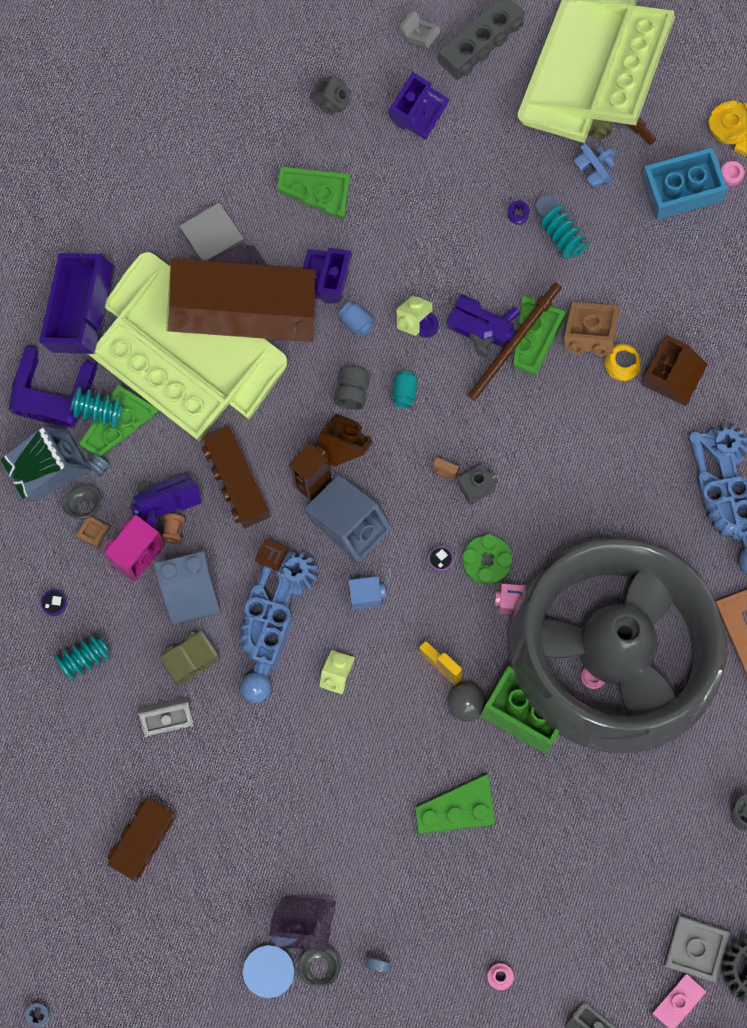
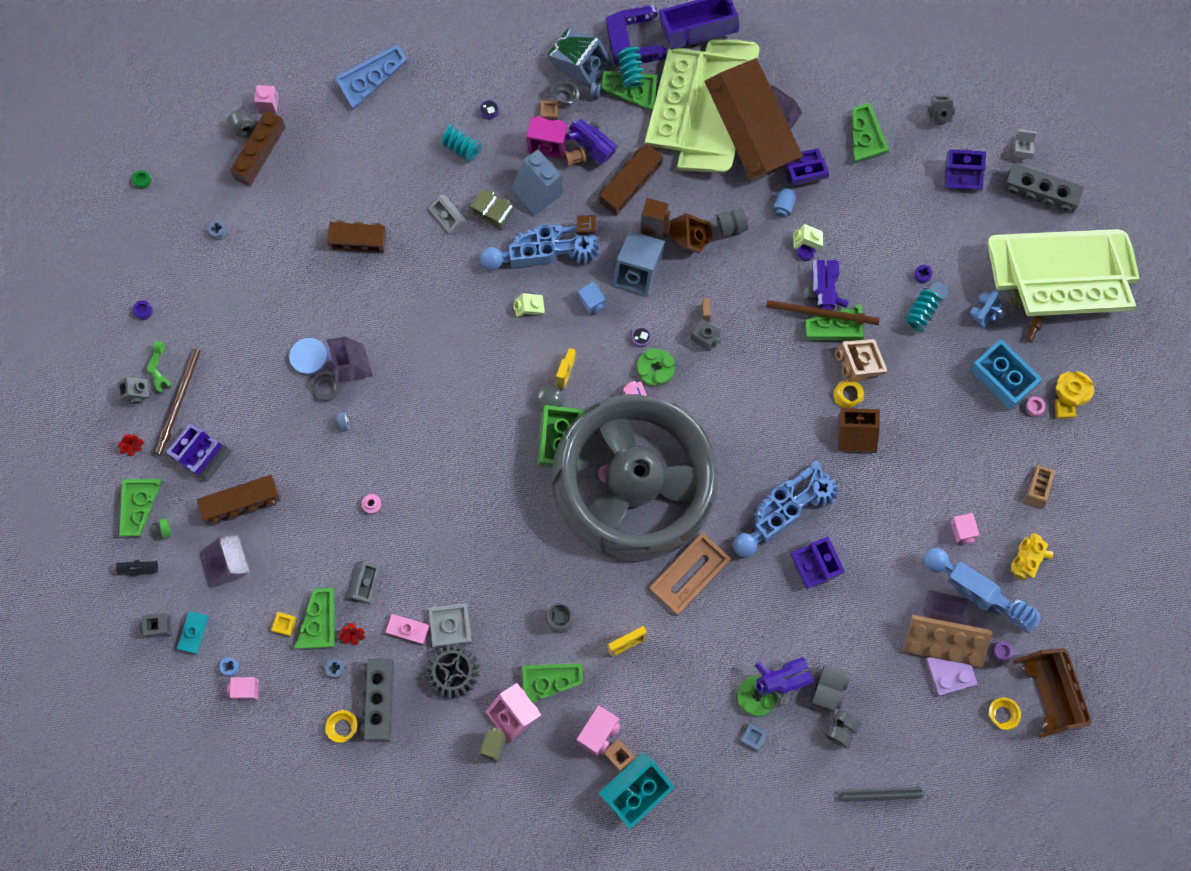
camera: 60 degrees right, 0 degrees up
(211, 232) = (798, 82): light grey tile -> none
(404, 389) = (750, 257): teal brick -> none
(458, 809) = (473, 427): bright green wing -> none

